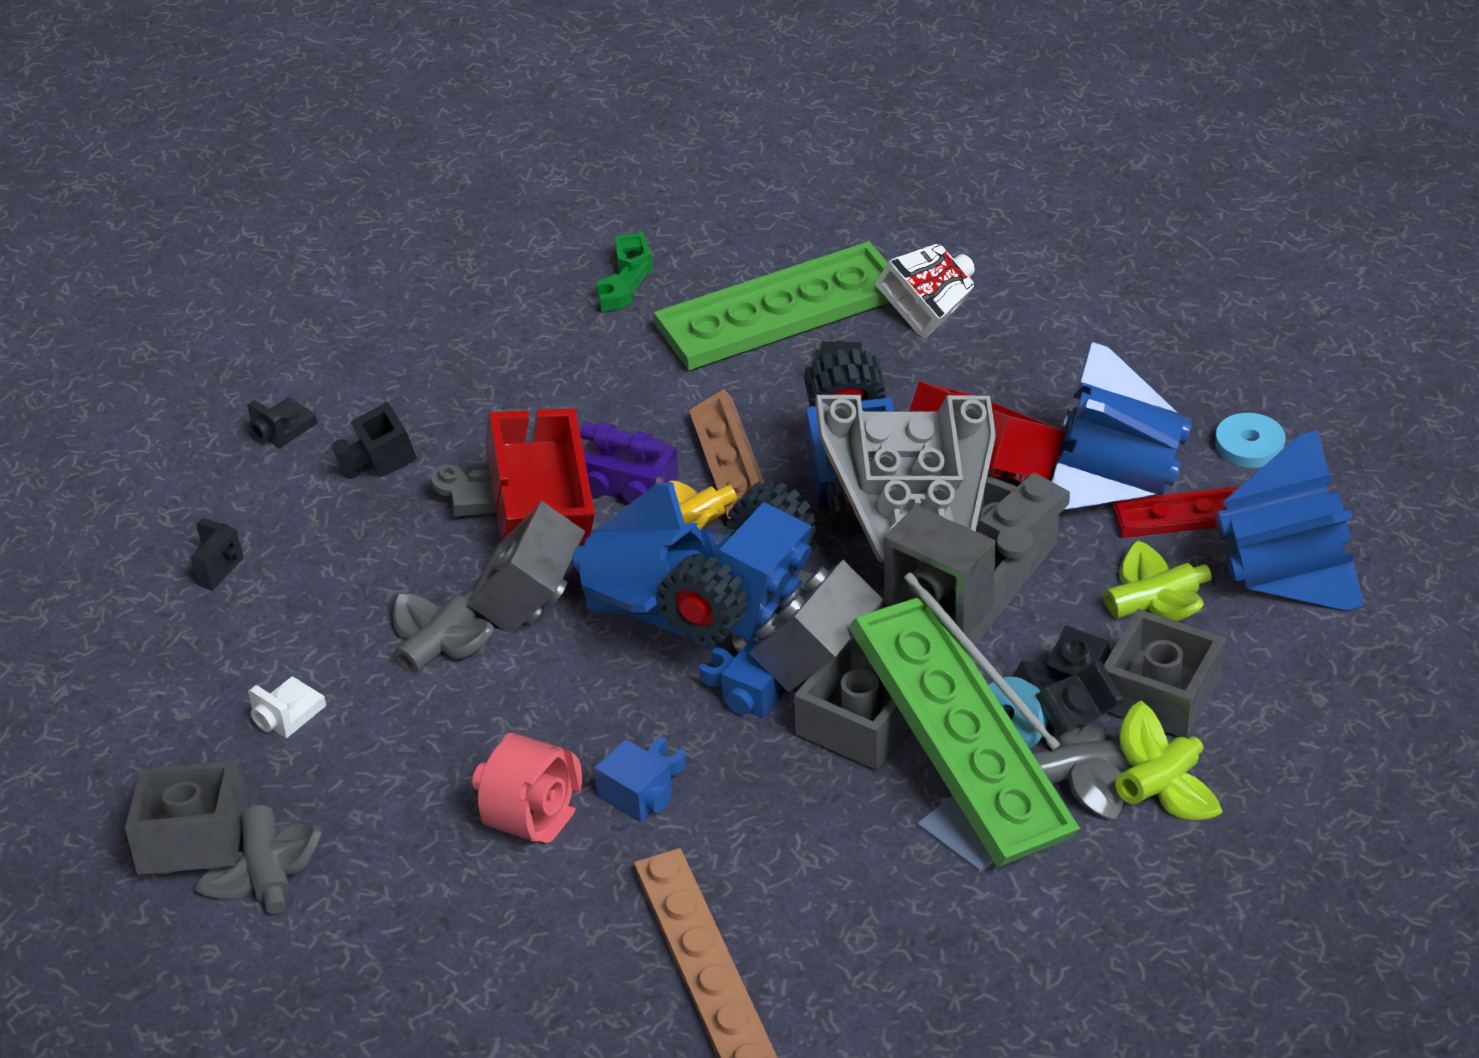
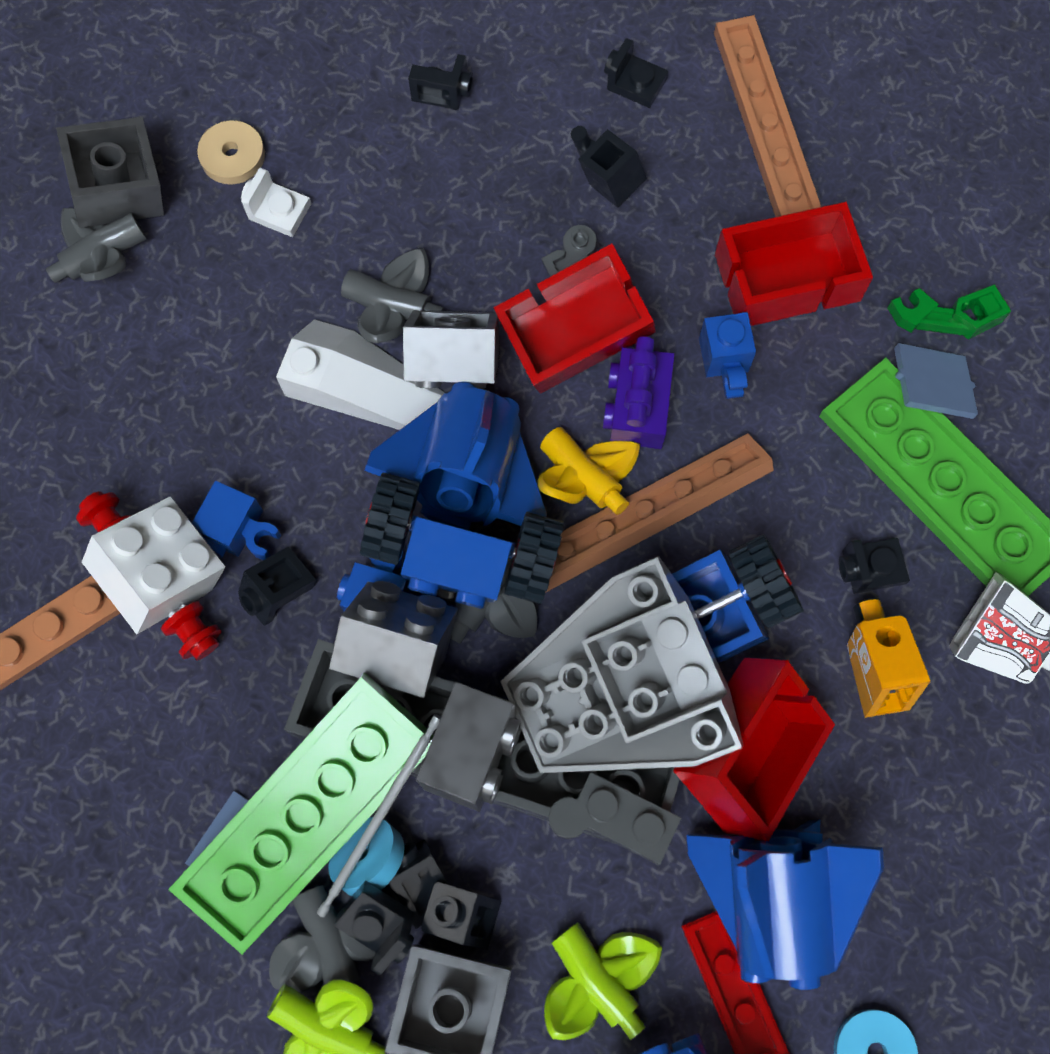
camera: 75 degrees right, 30 degrees up
(205, 720) = (228, 136): none -> tan piece
(383, 343) = (765, 116): none -> nougat plate
(518, 673) = (351, 376): none -> white wedge
(523, 778) = (185, 429): coral brick -> none
(541, 345) = (793, 264): none -> red piece
(602, 399) = (728, 350): none -> blue brick
(668, 825) = (153, 568): none -> white brick
(687, 289) = (935, 381): none -> sand blue piece
(720, 758) = (273, 584): none -> black bracket
(930, 353) = (885, 660): none -> light orange torso

